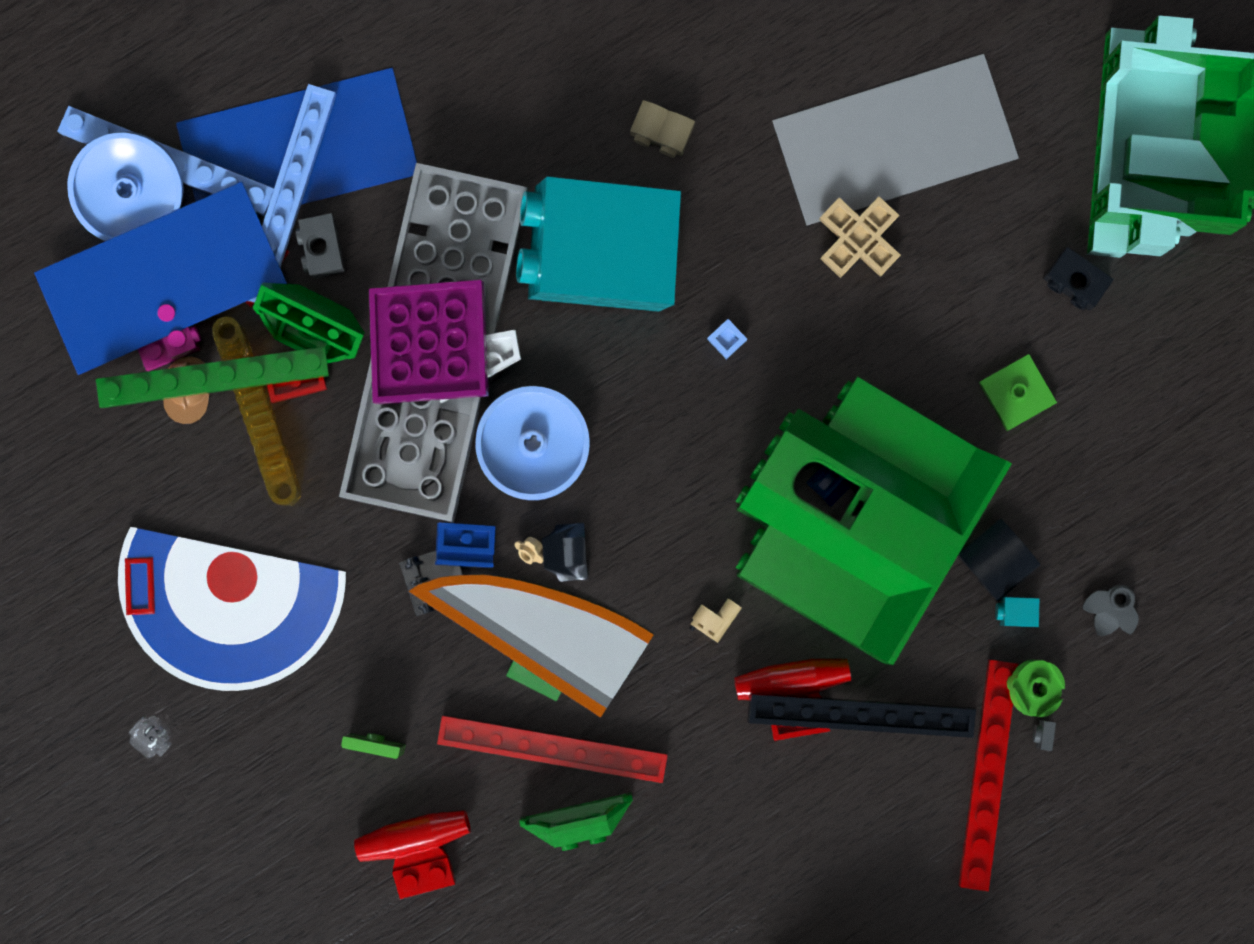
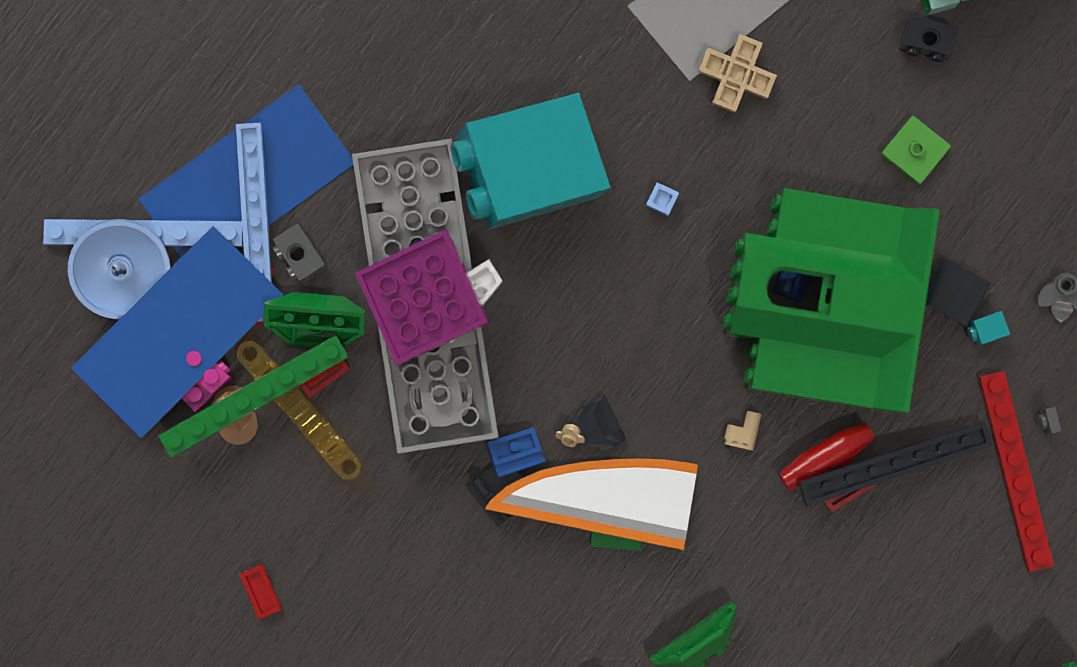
camera: 20 degrees left, 0 degrees up
(227, 612) = (340, 584): sticker -> none
(373, 744) = (505, 646): bright green plate -> none
(532, 443) = (537, 346): light blue dish -> none
(552, 749) = (653, 591): red plate -> none
(662, 128) = (540, 48): dark tan brick -> none
(1022, 684) = (1015, 387): bright green plate -> none

